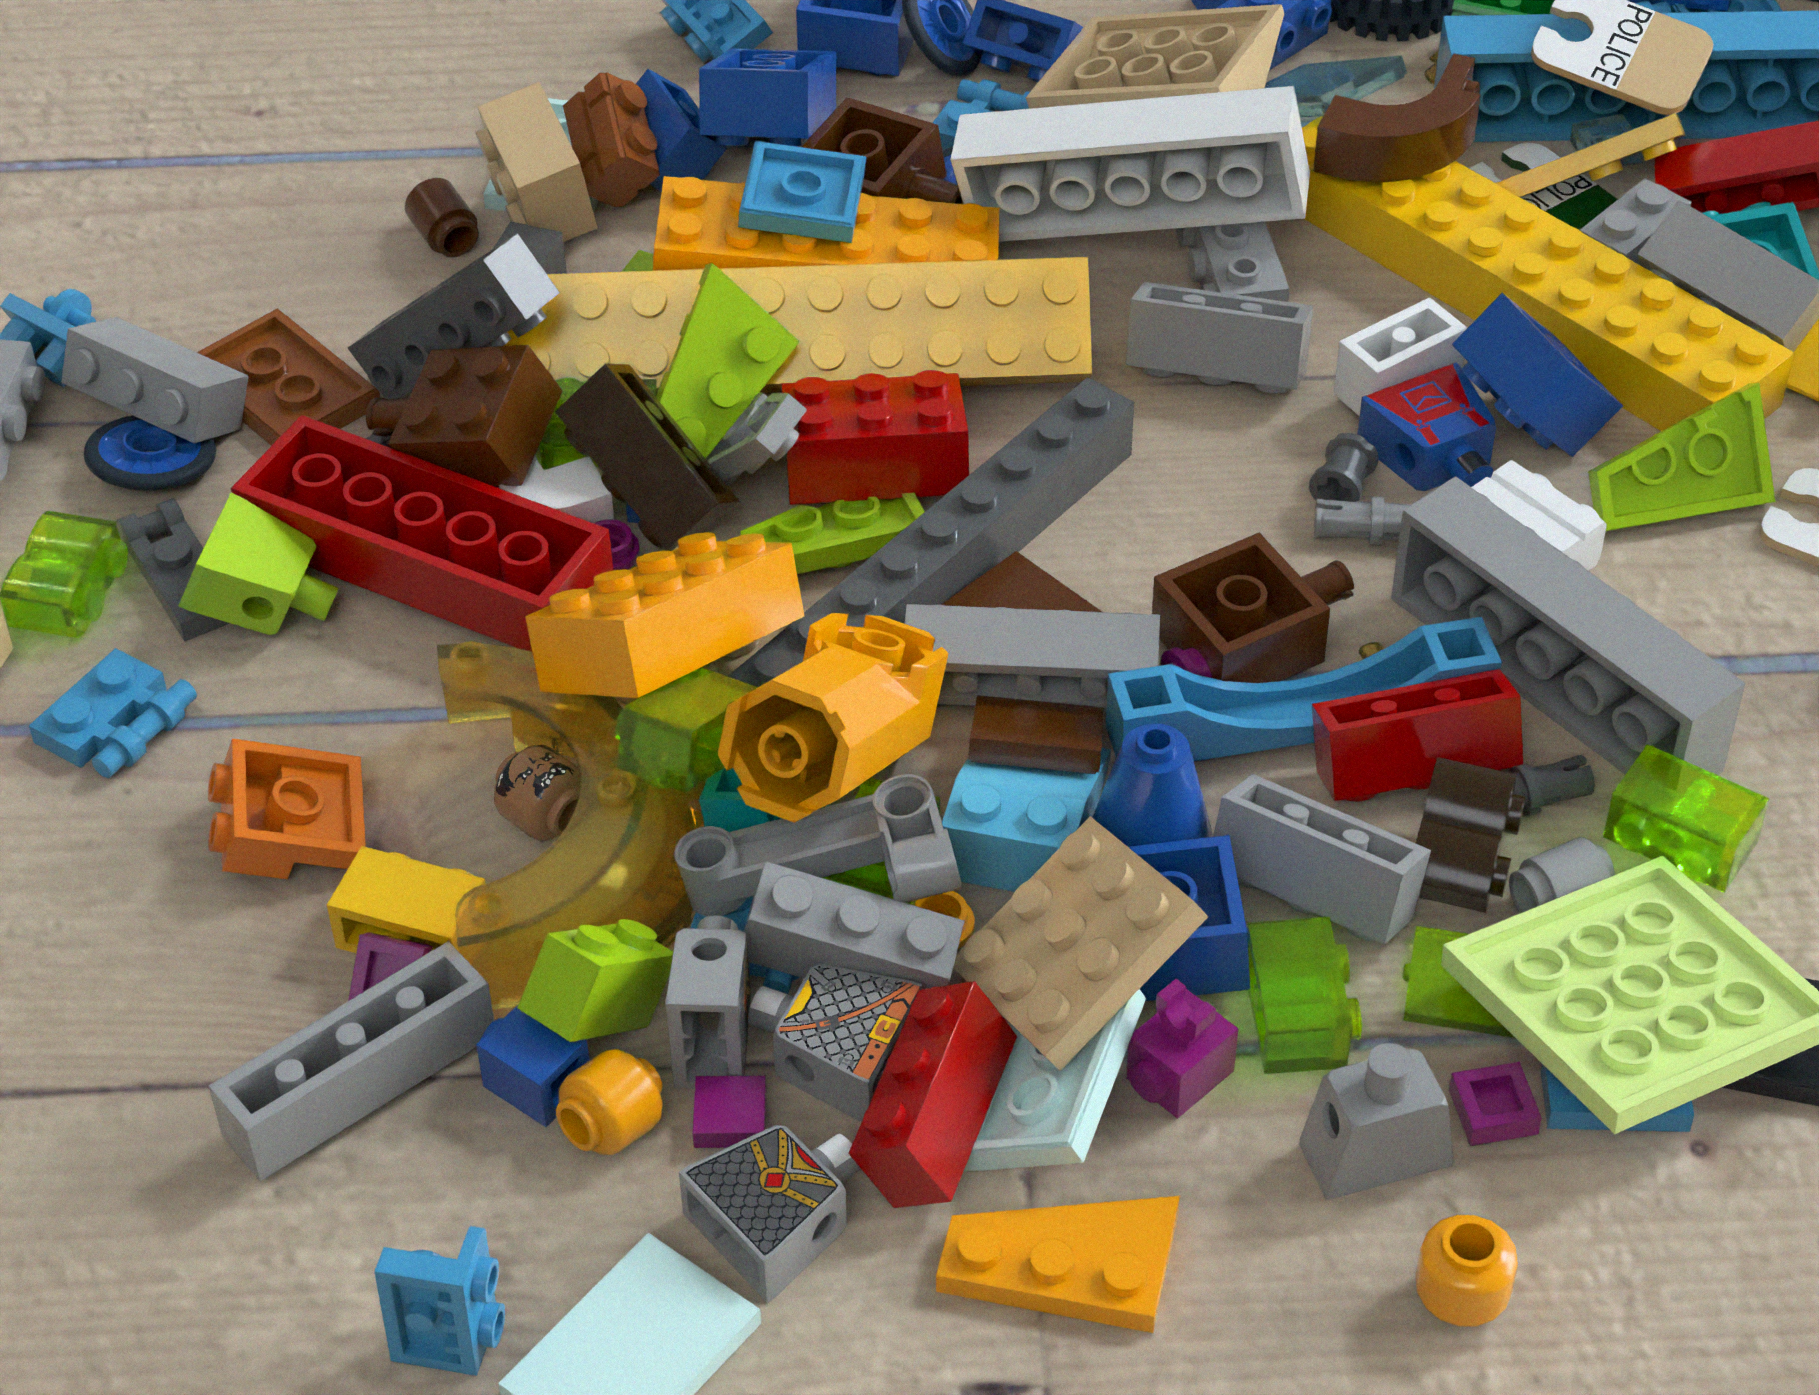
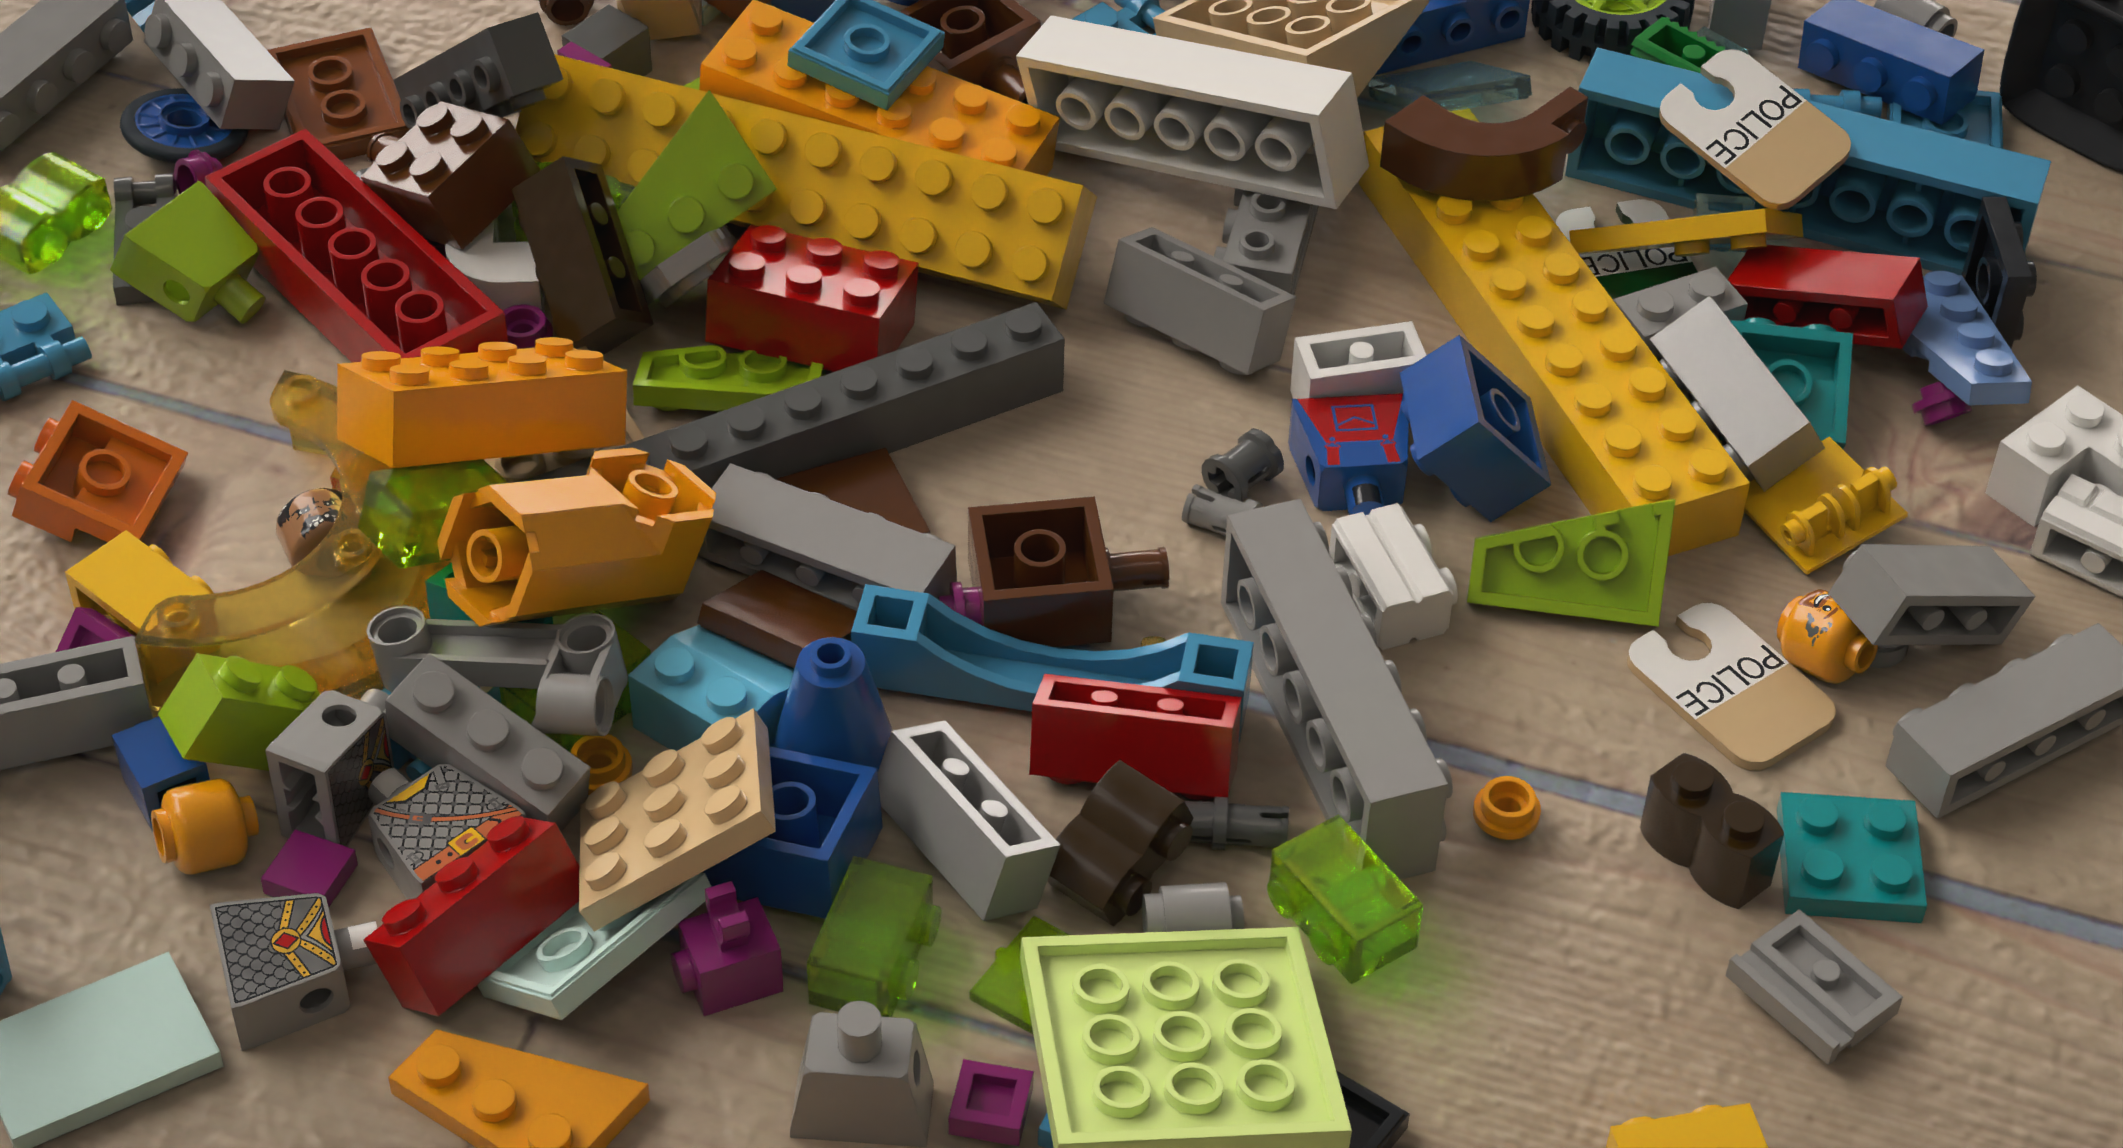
camera: 20 degrees right, 0 degrees up
(199, 495) = (194, 169): none -> magenta plate
(1763, 697) = (1507, 808): none -> light orange plate

